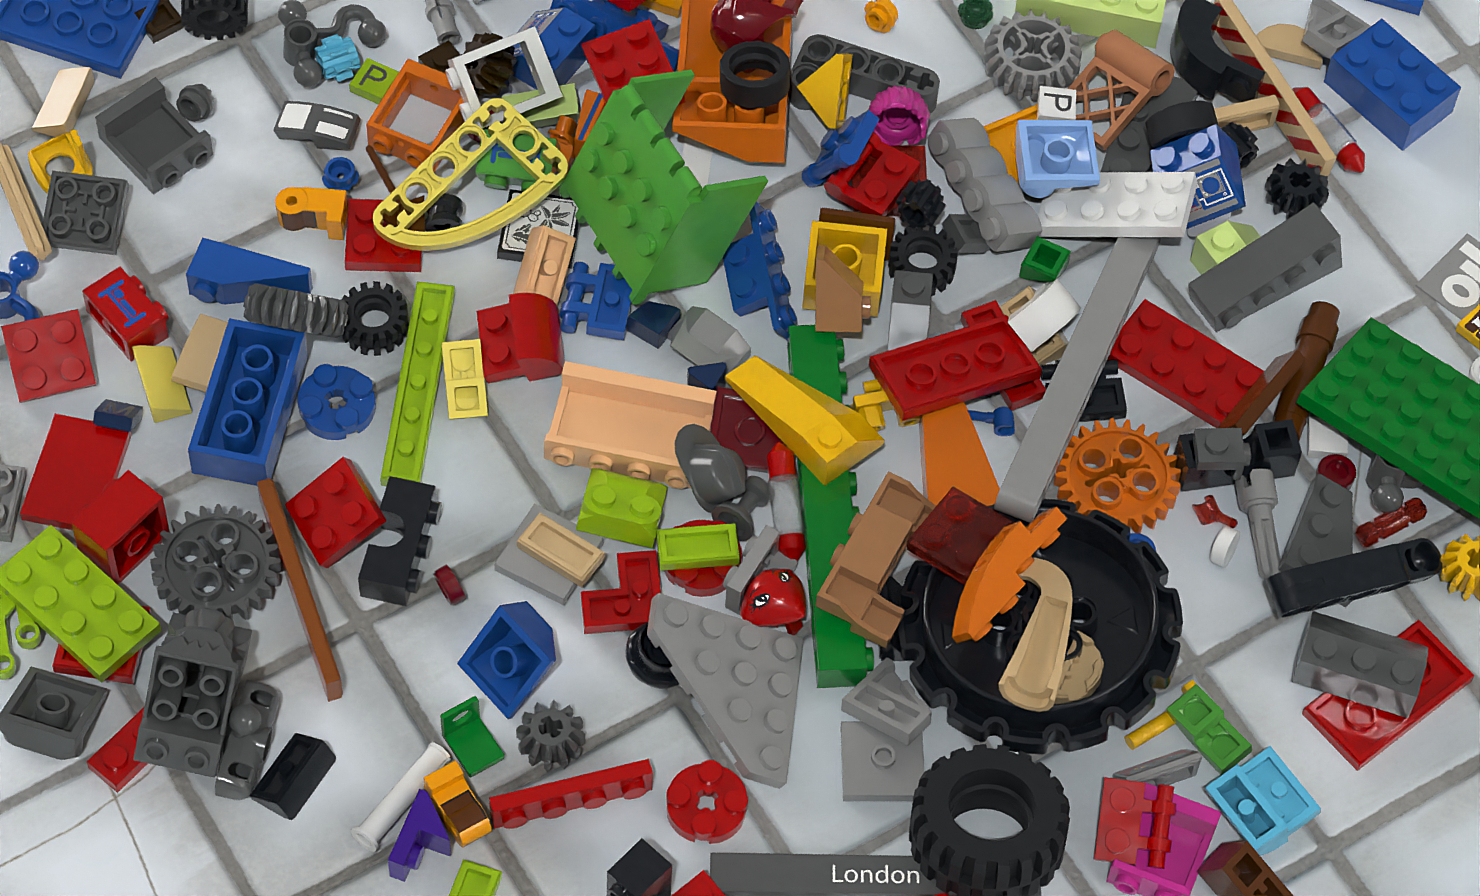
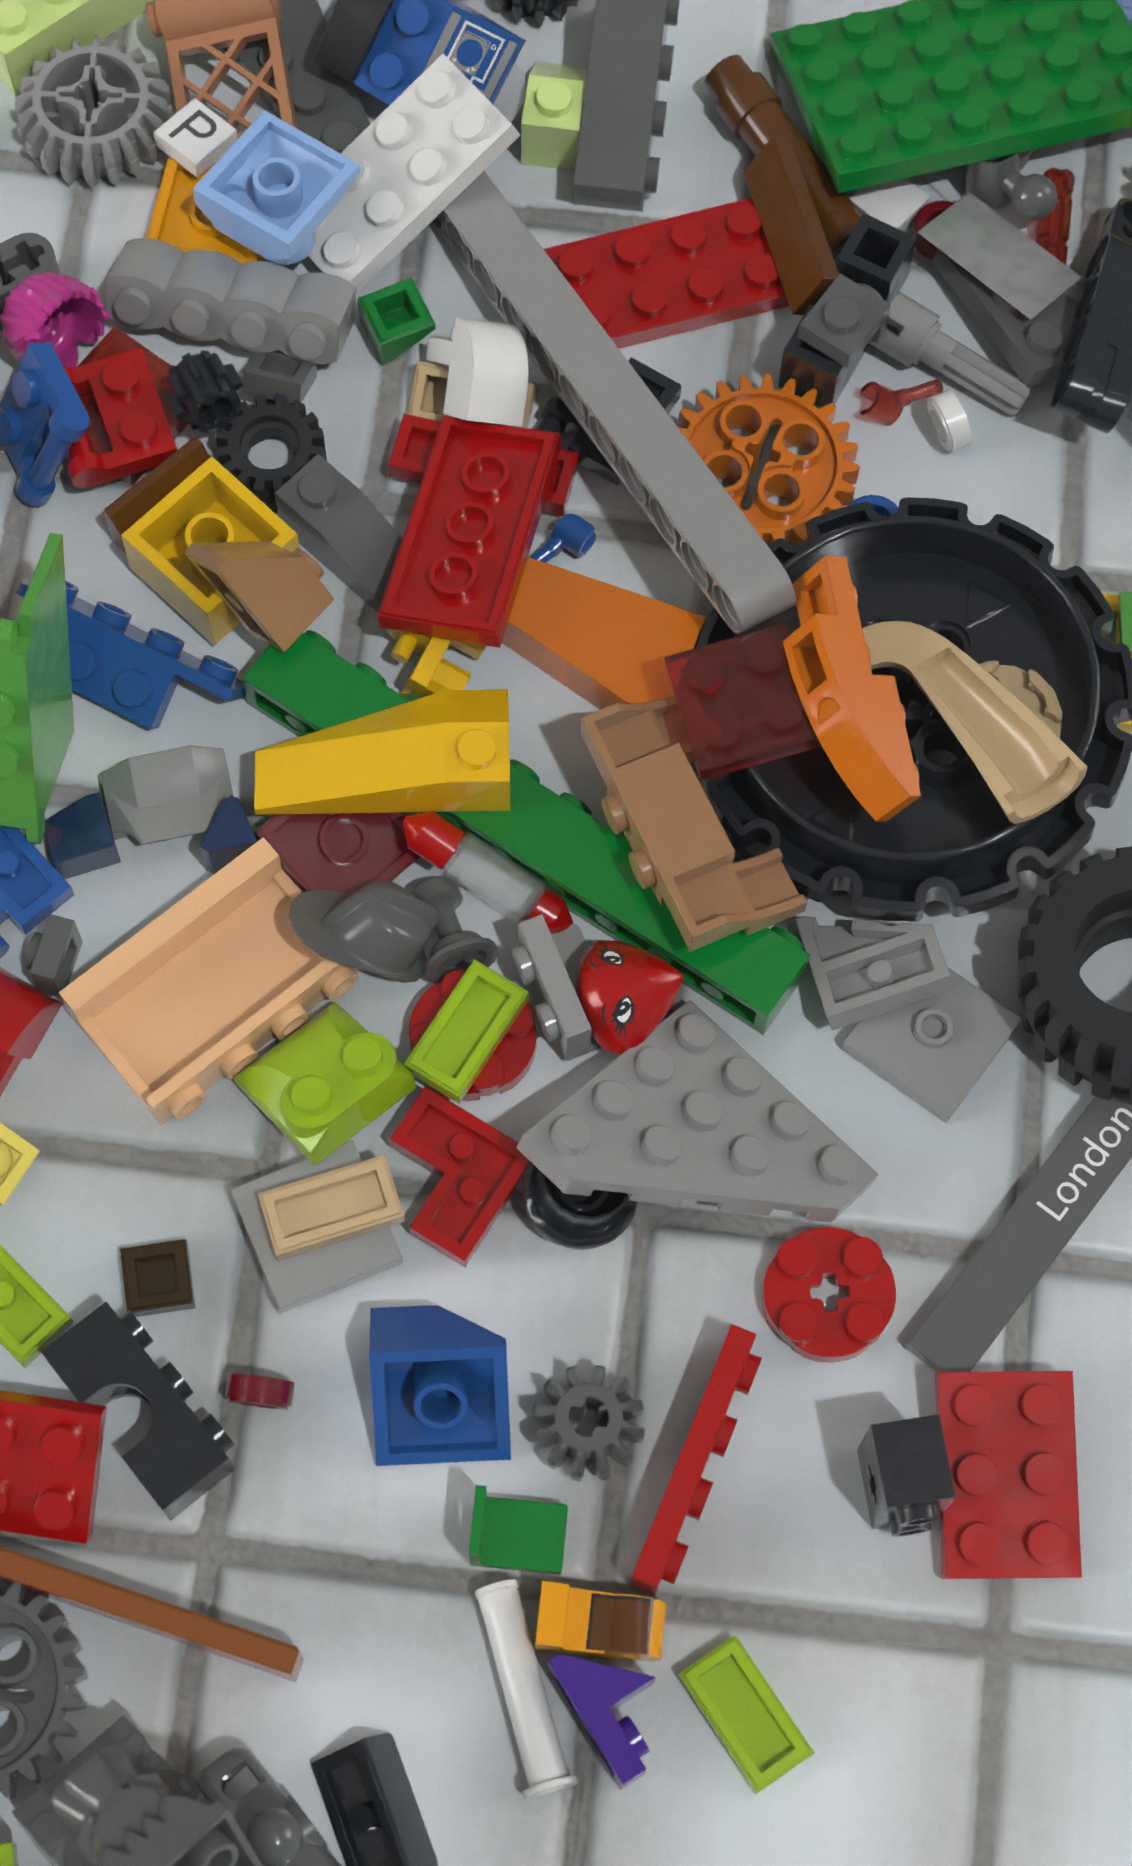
camera: 50 degrees left, 10 degrees up
(468, 508) = (157, 1278): none -> dark brown tile
(586, 349) = (53, 955): none -> dark grey plate
(1338, 504) = (999, 255): none -> flat silver sticker

